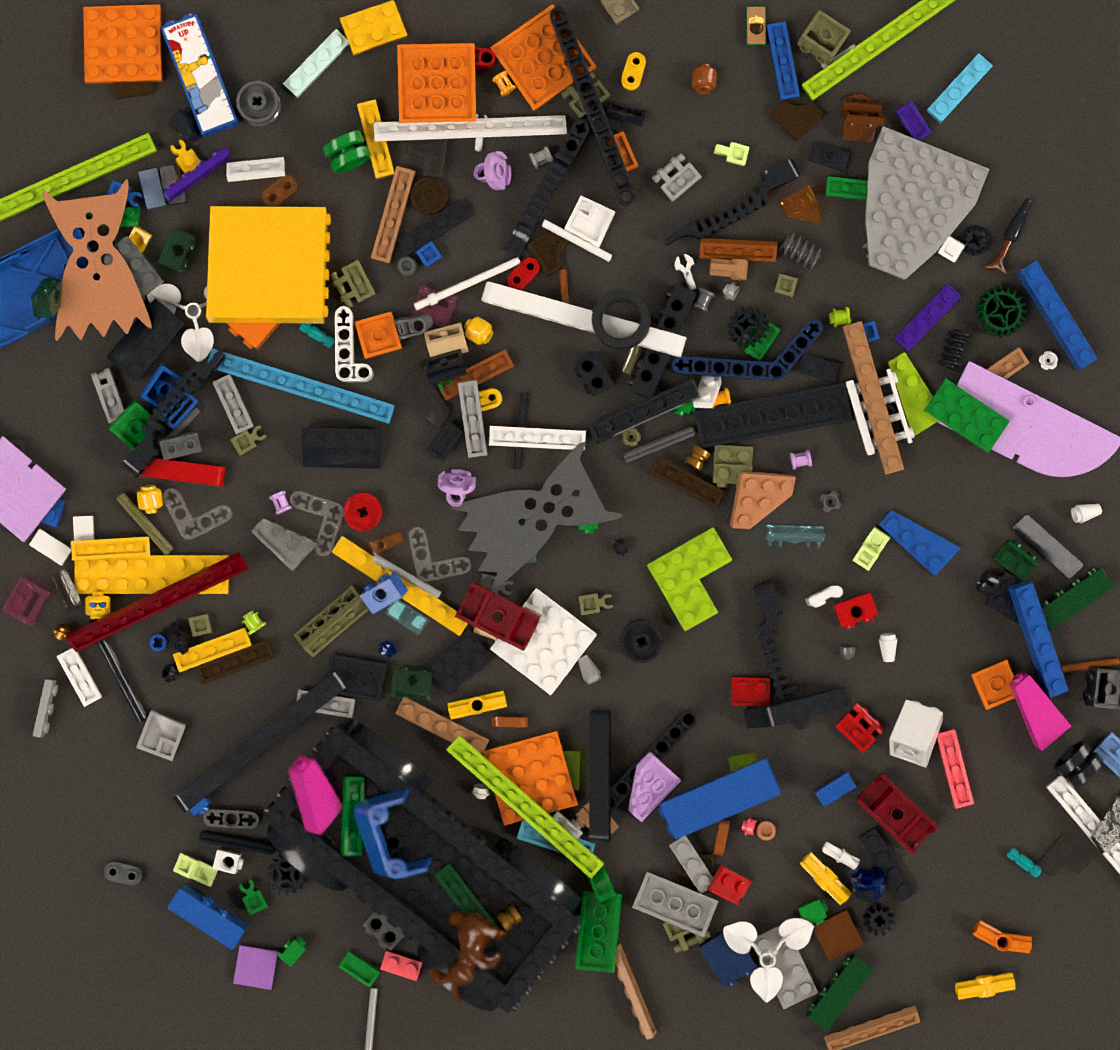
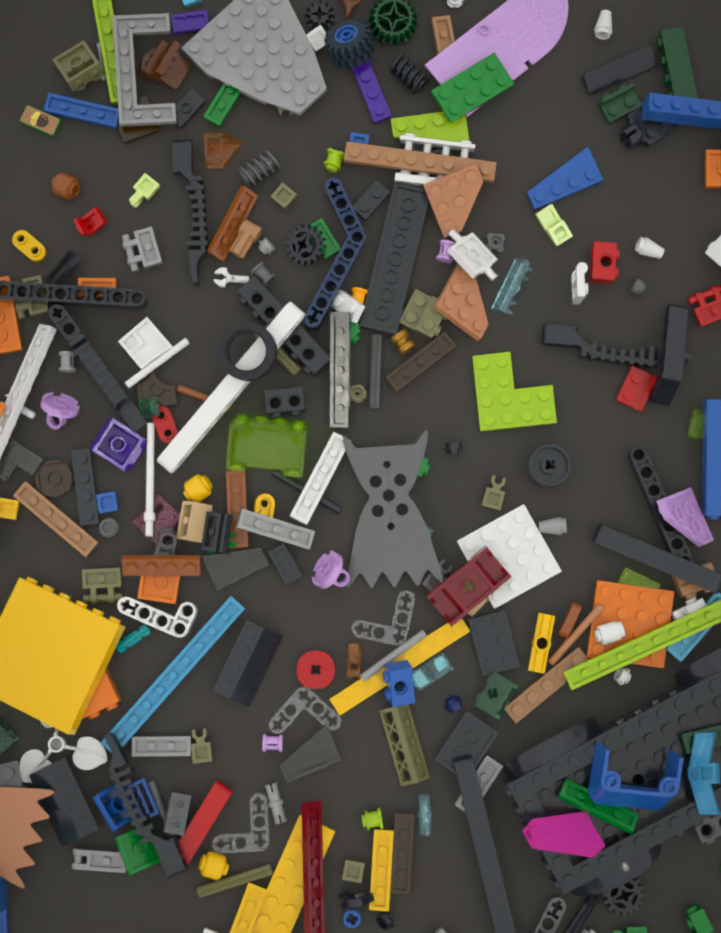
camera: 70 degrees left, 5 degrees down
(228, 529) = (275, 803): none -> light grey pin
(278, 667) = (425, 814): none -> clear light blue pin
(393, 330) = (161, 565): none -> dark orange plate
(422, 896) = (703, 773): none -> dark azure plate
(485, 240) = (118, 444): none -> dark purple slope
(499, 732) = (576, 634): none -> nougat bar
(513, 761) = (609, 632): none -> white brick
(532, 252) = (149, 407): none -> clear green plate
(546, 375) = (267, 444): none -> clear neon green windscreen
(680, 118) = (90, 222): none -> red bracket
(807, 485) = (472, 255): none -> white plate
(853, 444) = (454, 197): none -> nougat plate
(875, 64) = (124, 29): none -> light grey plate
(957, 281) = (349, 43): none -> black wheel

